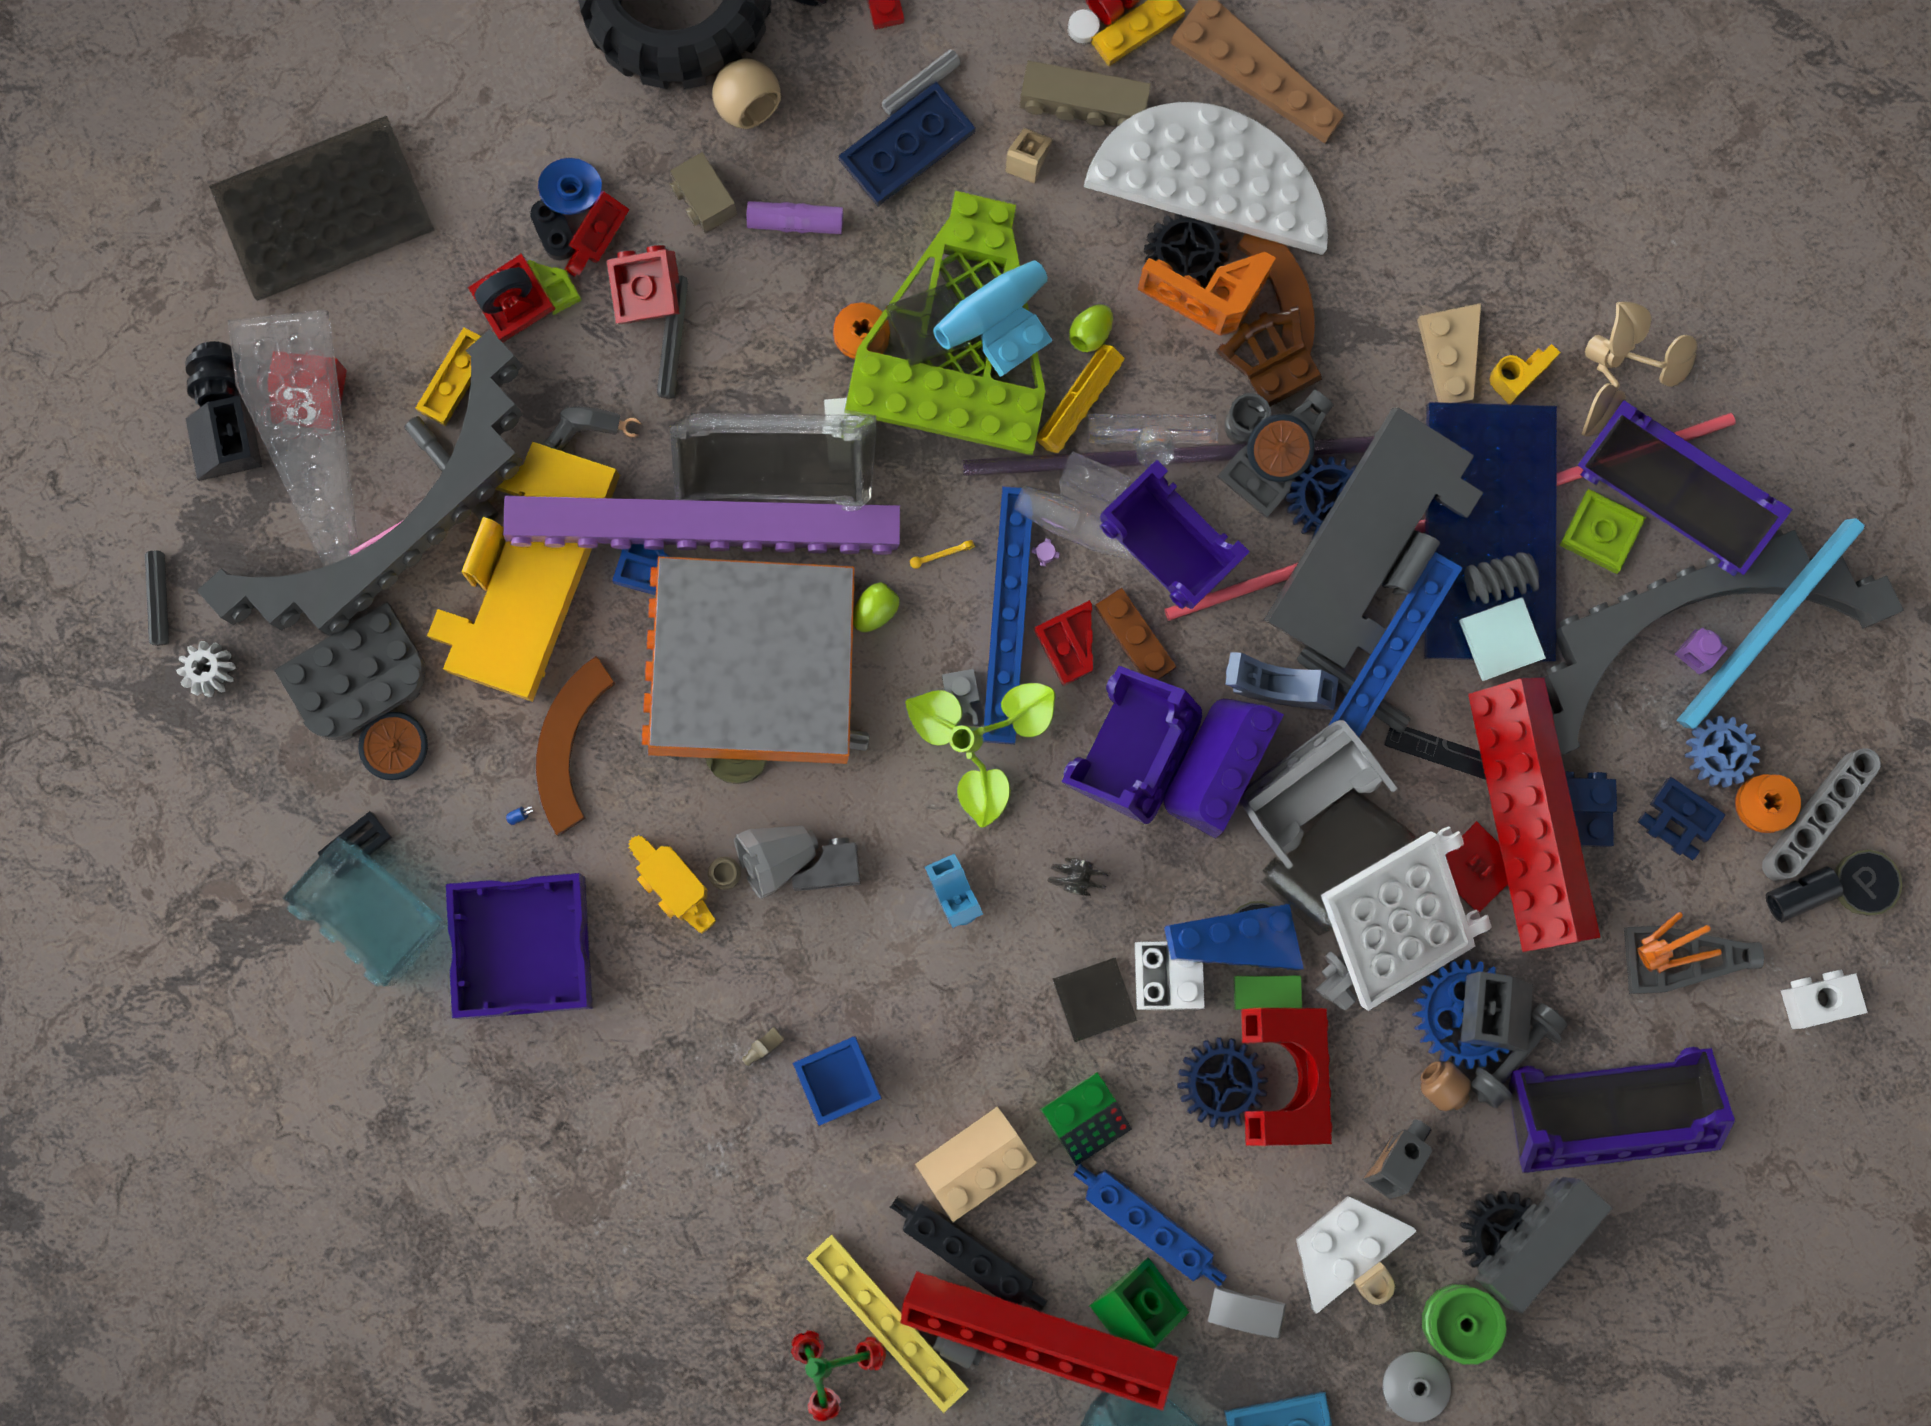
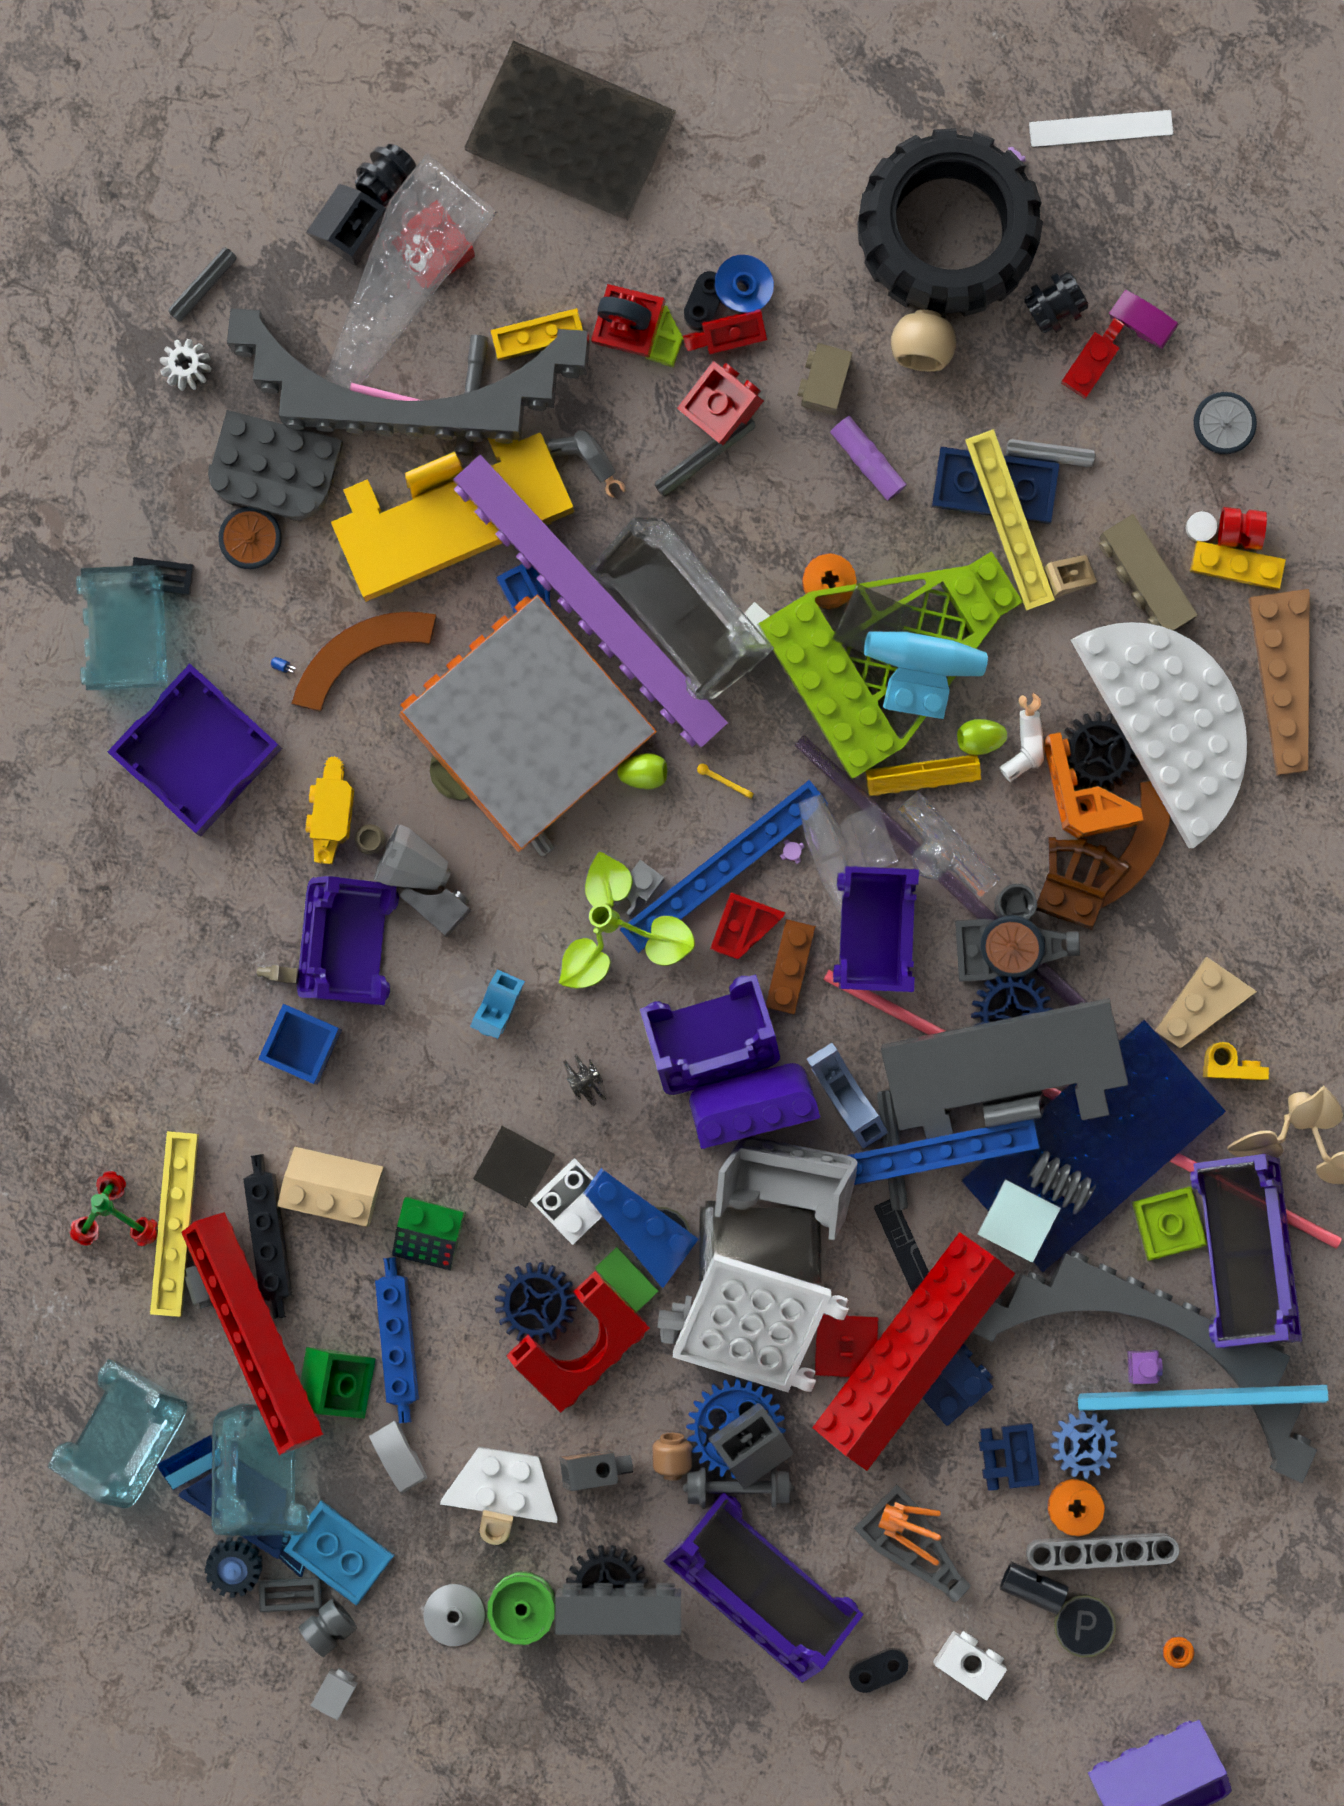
camera: 55 degrees right, 5 degrees up
(786, 967) = (344, 940): none -> dark purple windscreen
(944, 153) = (1009, 519): none -> light yellow plate
(1128, 294) = (1031, 738): none -> white arm
(1761, 1077) = (877, 1667): none -> black plate

